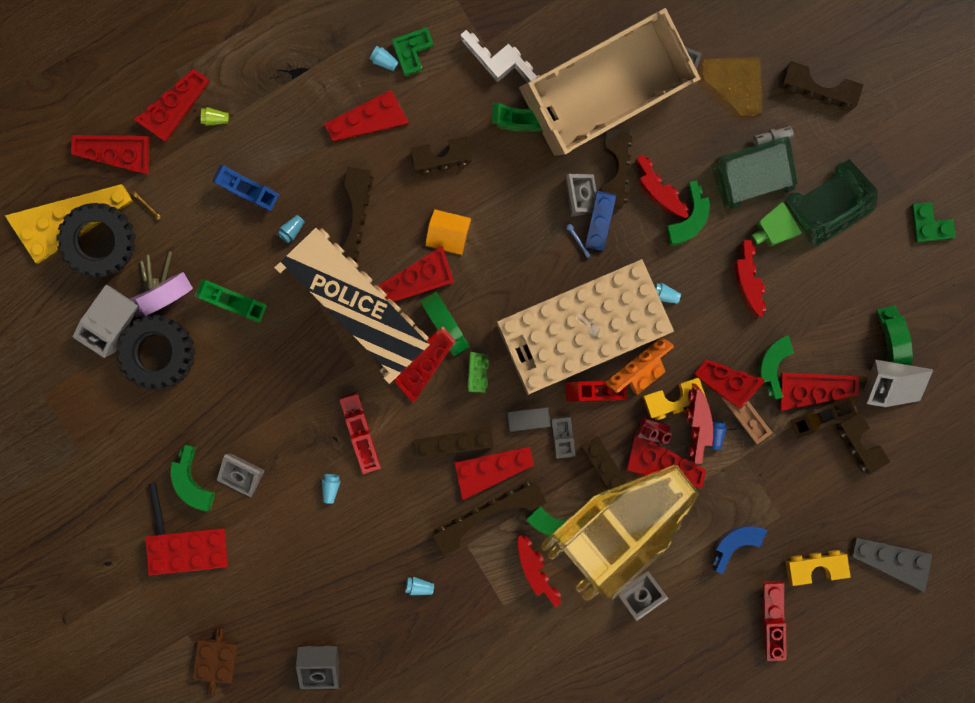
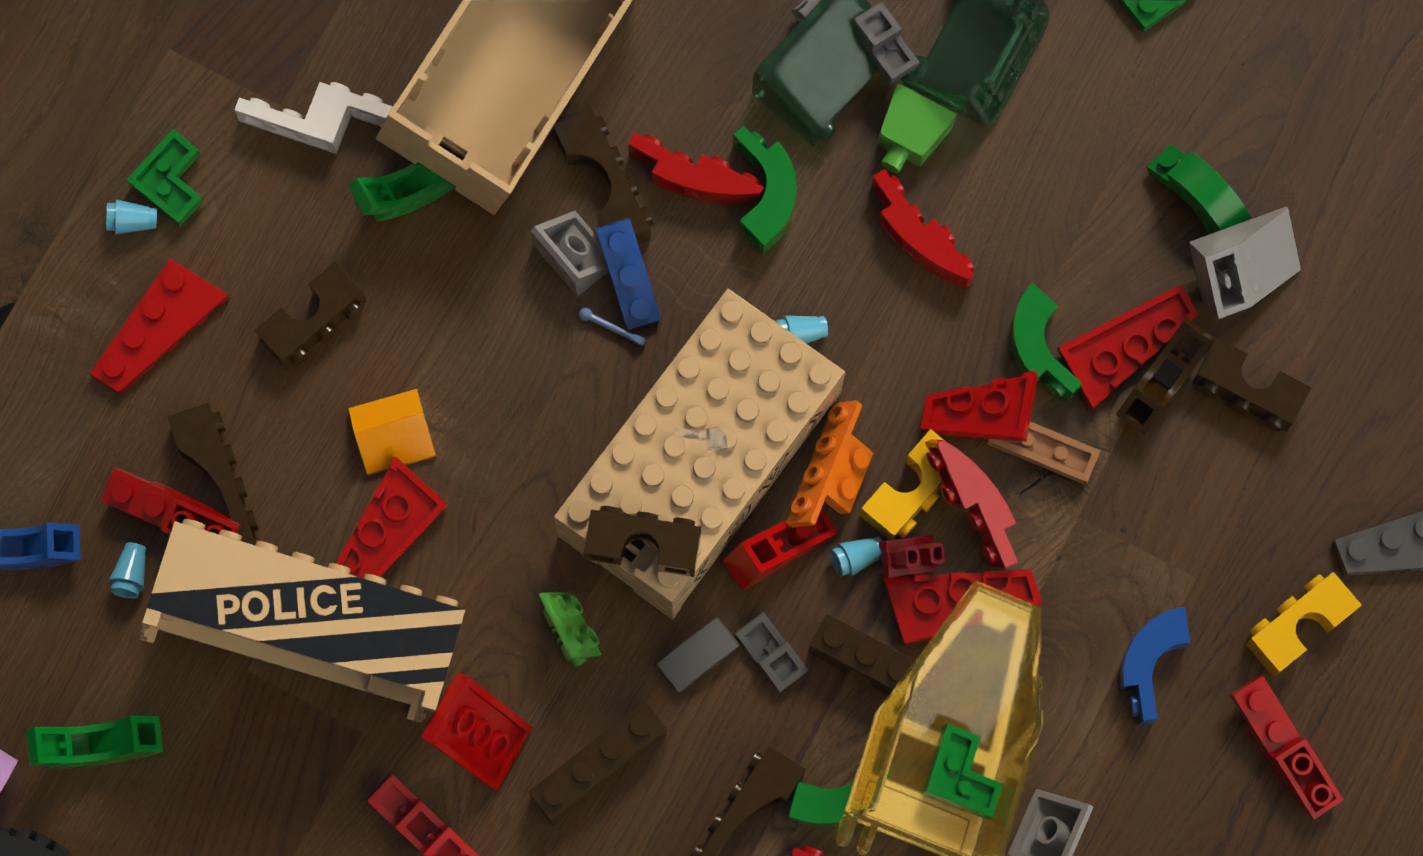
camera: 30 degrees left, 10 degrees down
(325, 212) = (161, 504): none -> red slope
(405, 399) = (476, 731): none -> red plate
(419, 371) = (479, 638): red wing -> none
(442, 318) = (472, 578): green arch -> none
(485, 471) = (677, 780): red wing -> none
(546, 368) = (612, 531): none -> dark brown arch
(611, 547) = (951, 777): none -> green plate
(628, 415) = (854, 556): none -> medium azure cone
(718, 434) = (1018, 503): blue cone -> none
(788, 179) = (884, 44): none -> dark grey slope

